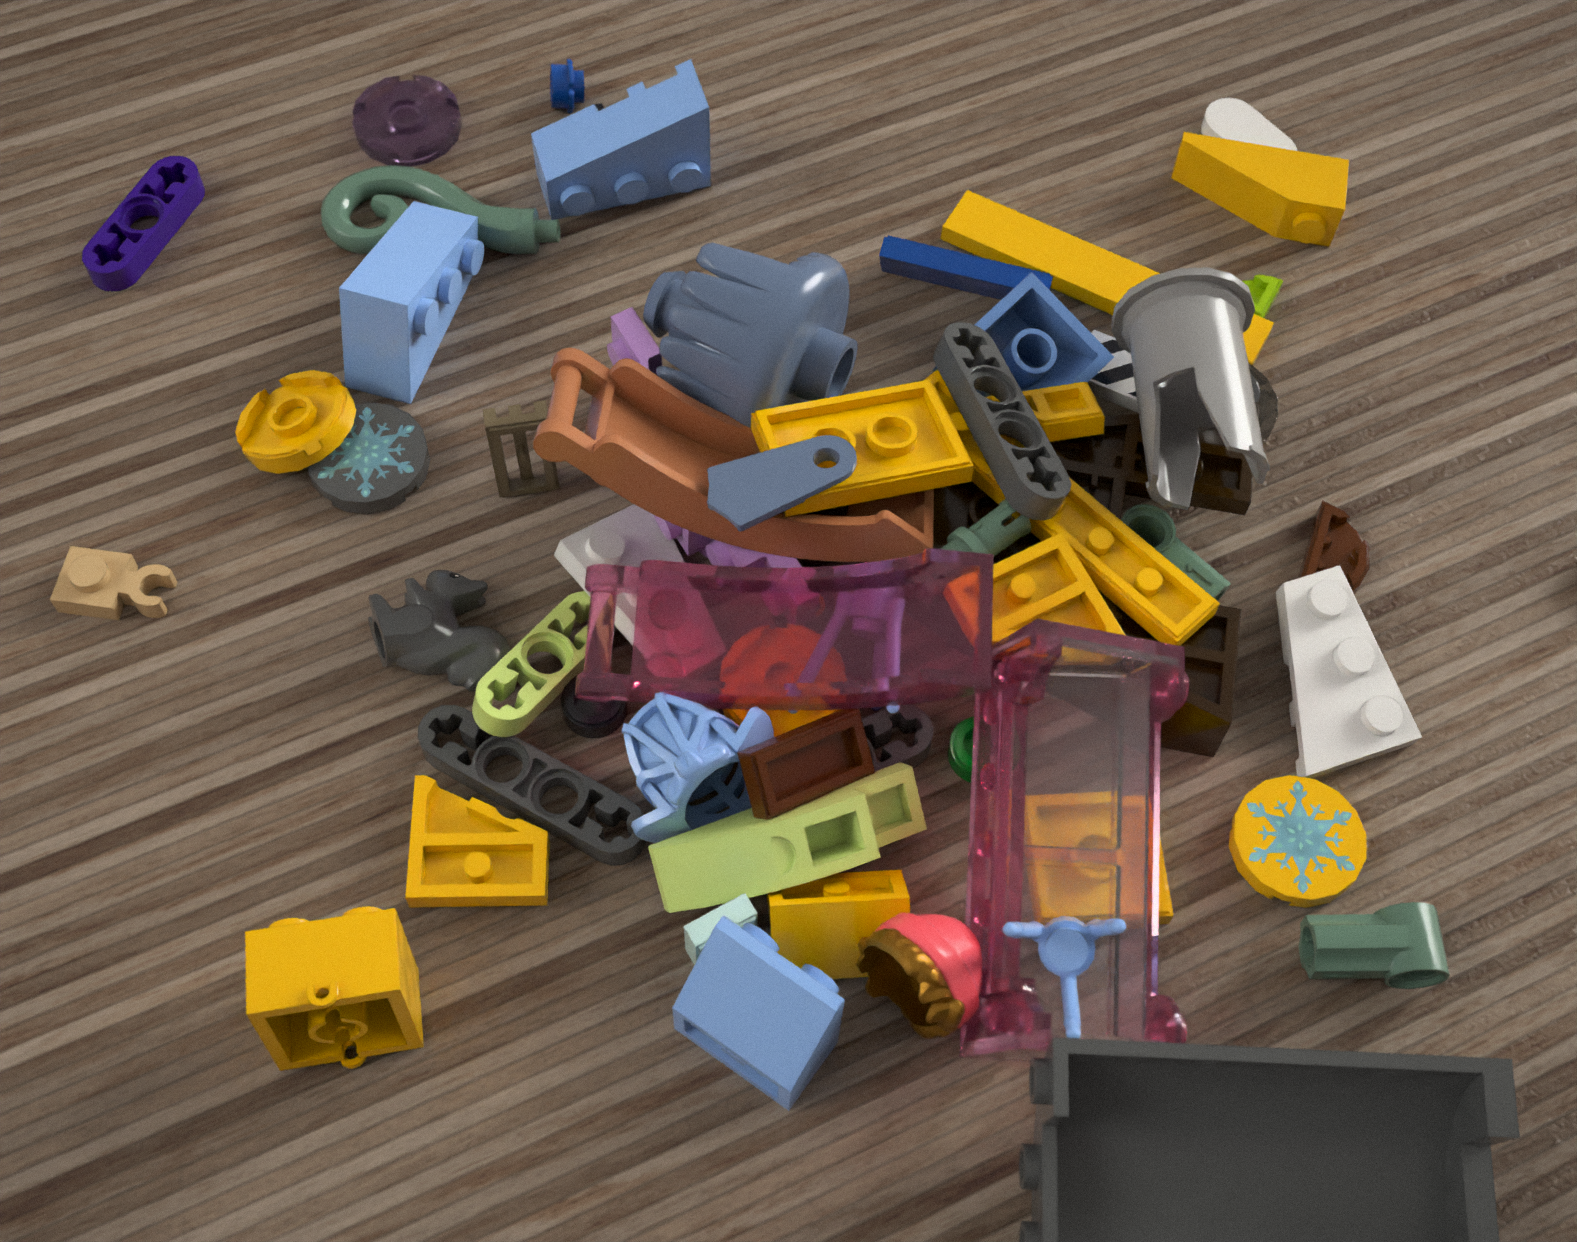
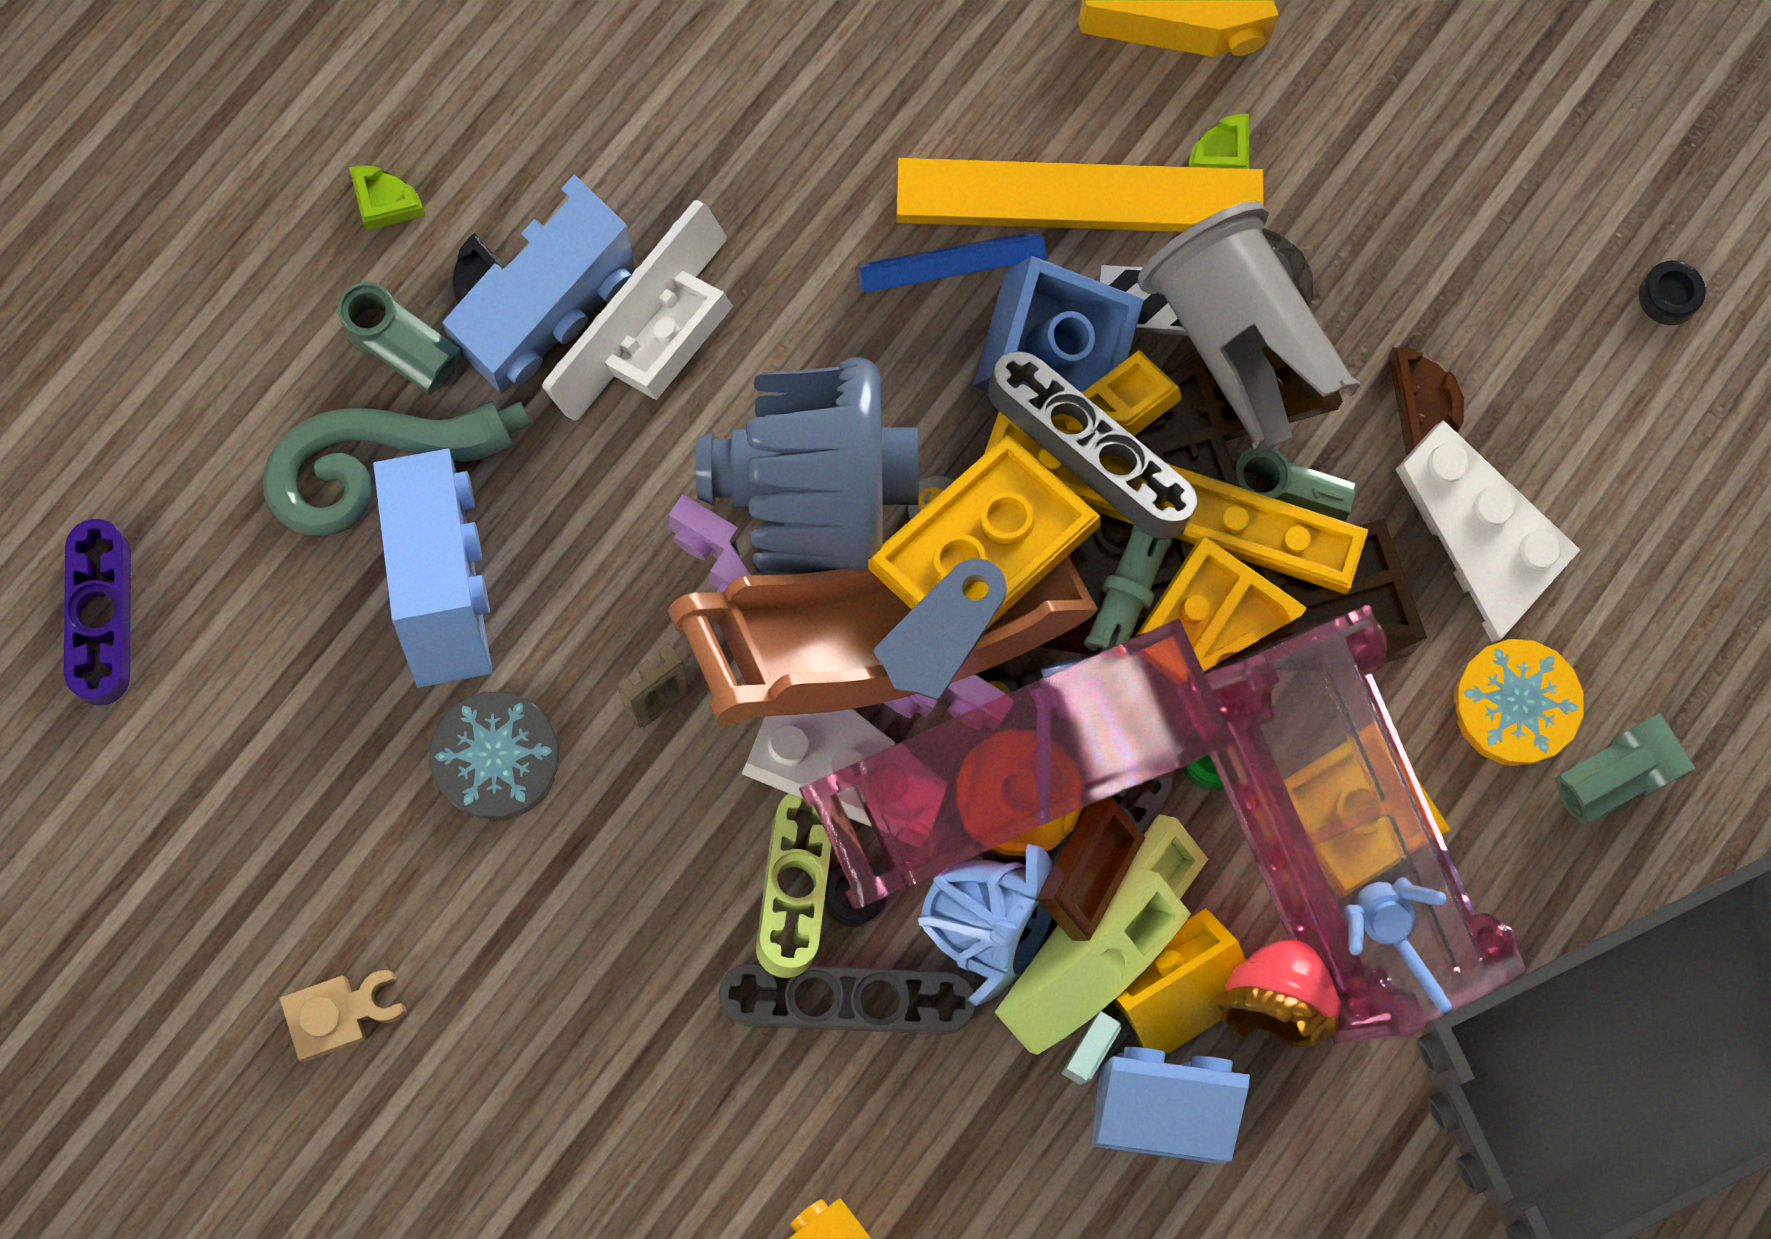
camera: 30 degrees left, 15 degrees up
(296, 422) = (407, 758): yellow tile -> none
(406, 120) = (282, 351): clear purple tile -> none
(427, 634) = (674, 914): dark grey animal -> none
(472, 854) = (837, 1090): yellow wing -> none
(494, 138) = (400, 339): none -> sand green piece
(546, 50) = (384, 197): none -> lime tile
(566, 86) = (425, 230): blue plate -> none
(693, 207) = (650, 322): none -> white bracket

